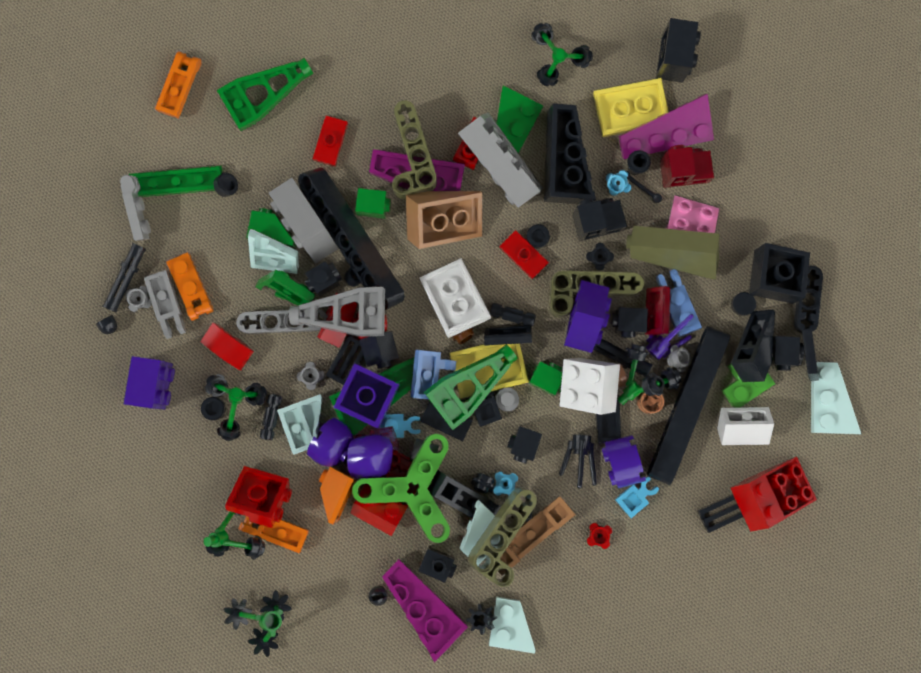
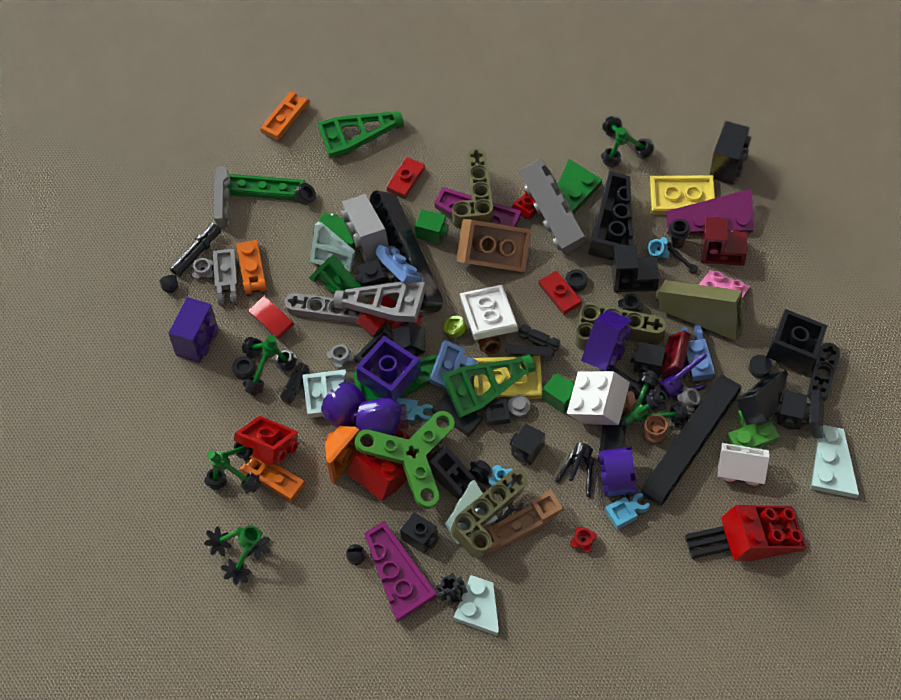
camera: 15 degrees right, 25 degrees down
(349, 266) = (397, 264): none -> medium blue hinge
(422, 319) = (454, 326): none -> lime tile

